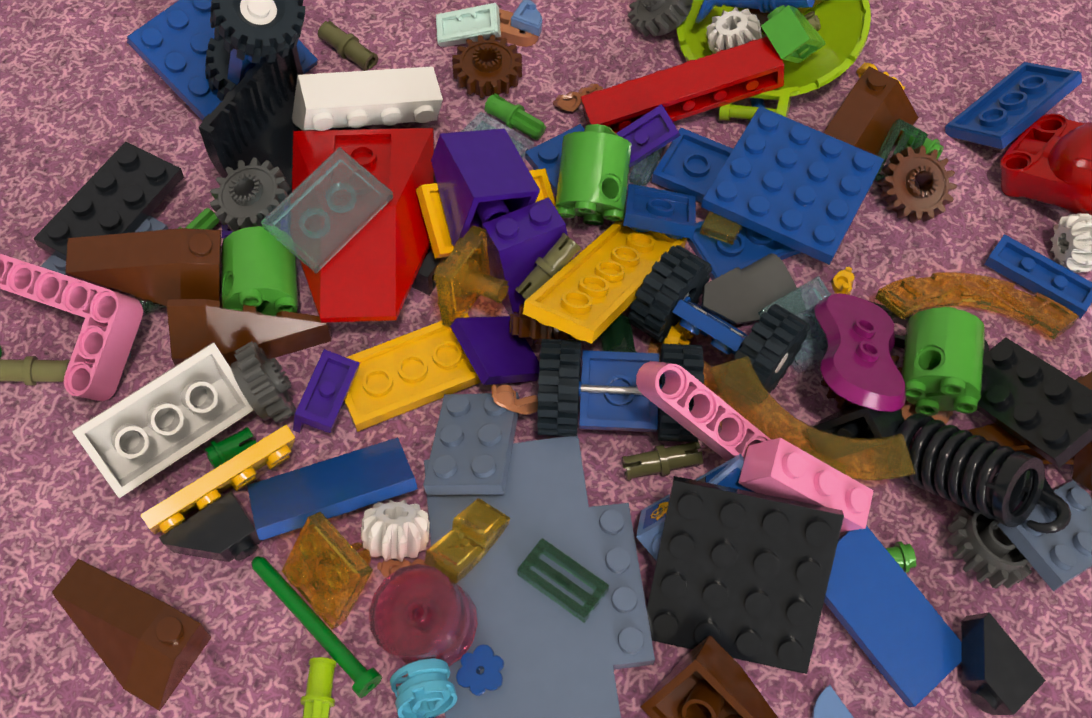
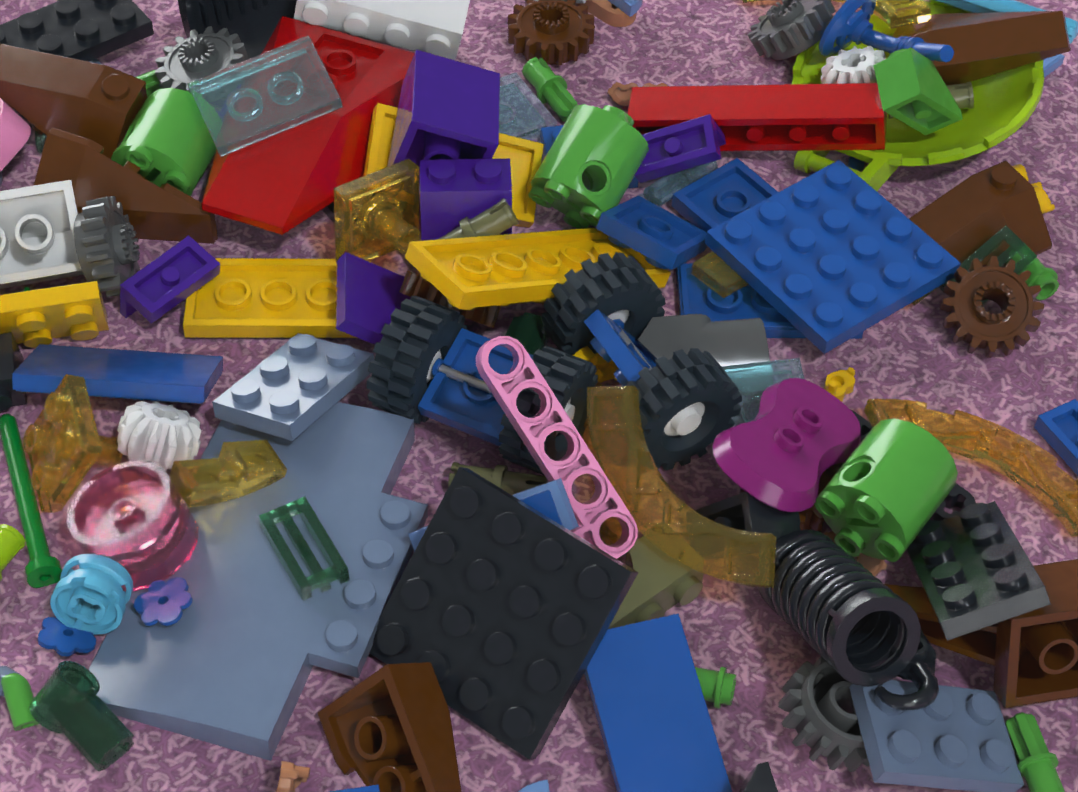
camera: 25 degrees right, 10 degrees down
(506, 397) = (348, 345): nougat piece -> none
(793, 474) = (606, 516): bright pink brick -> none

